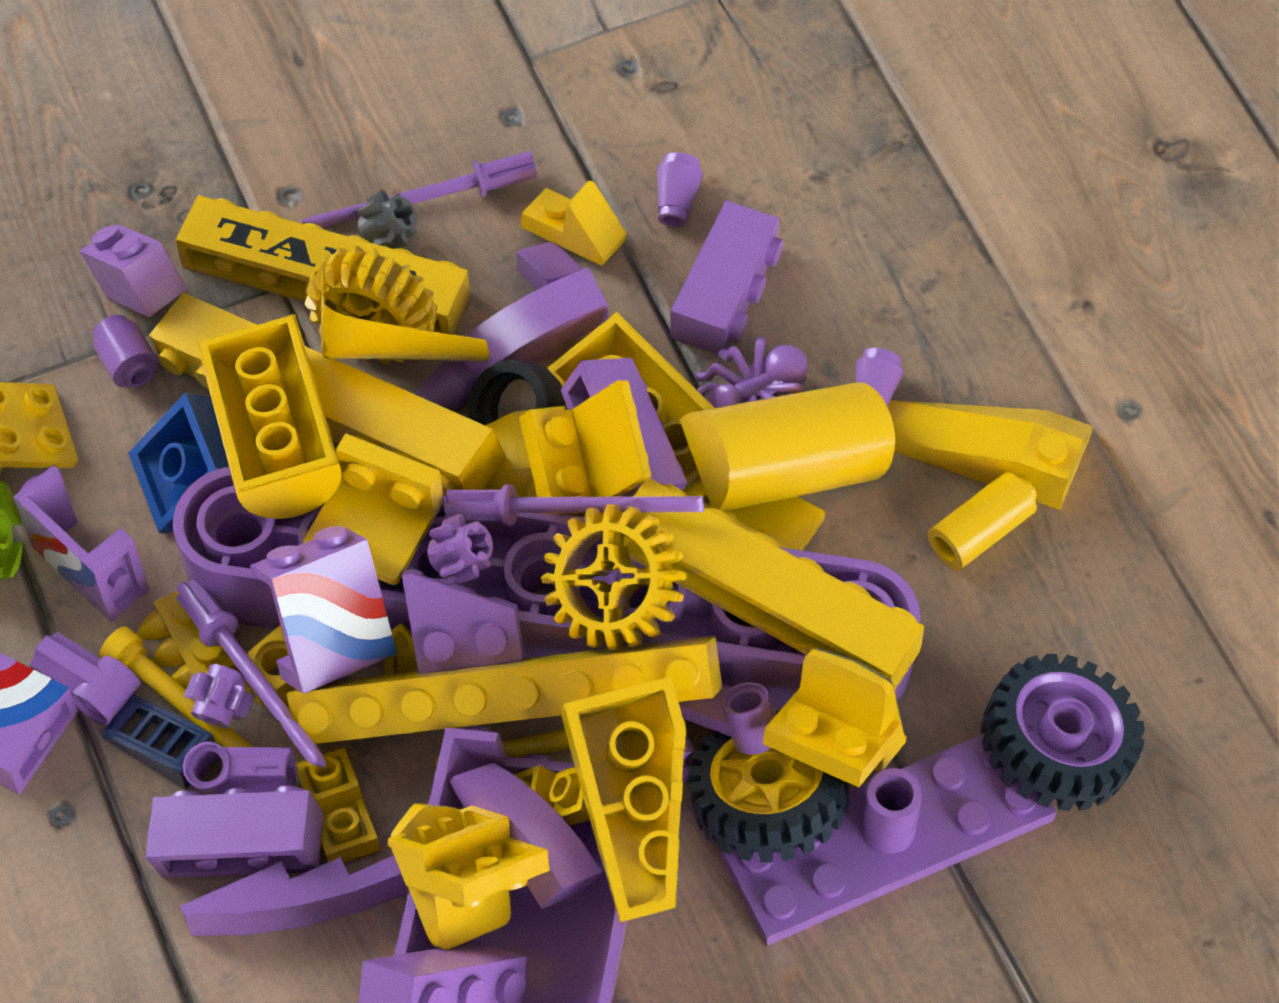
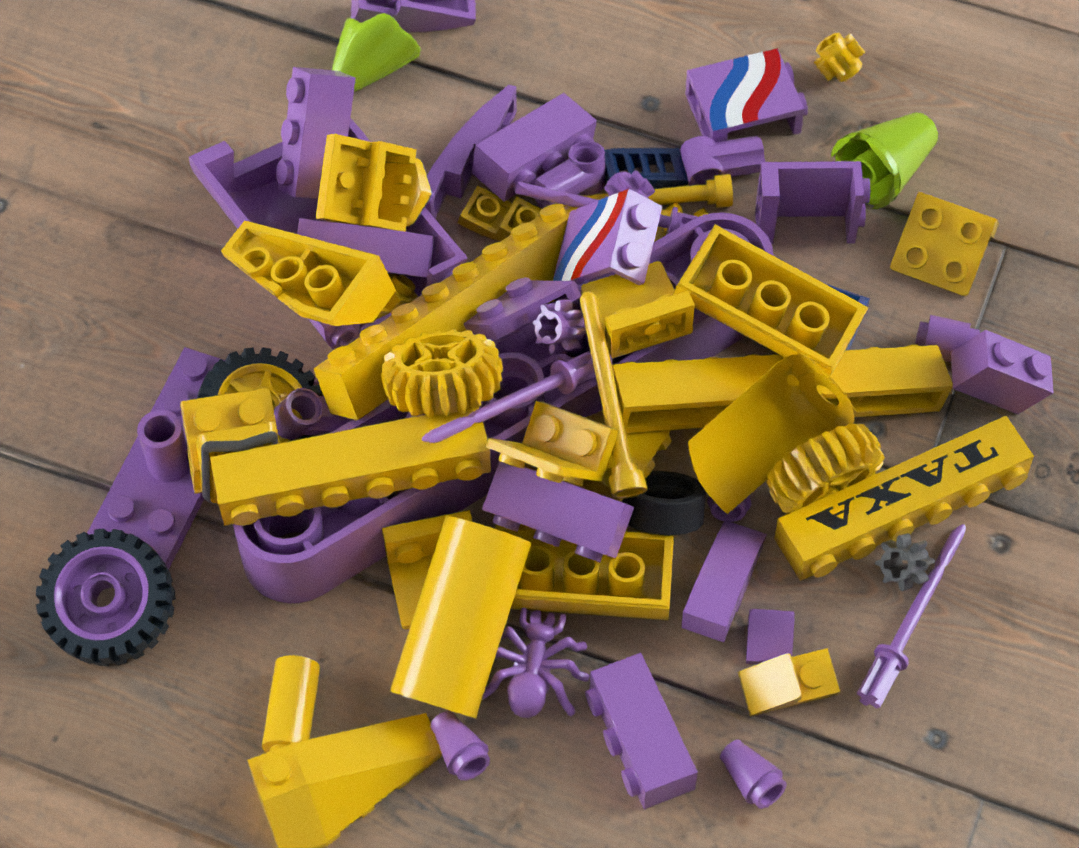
camera: 135 degrees right, 0 degrees up
(547, 392) = (625, 478): none -> yellow piece

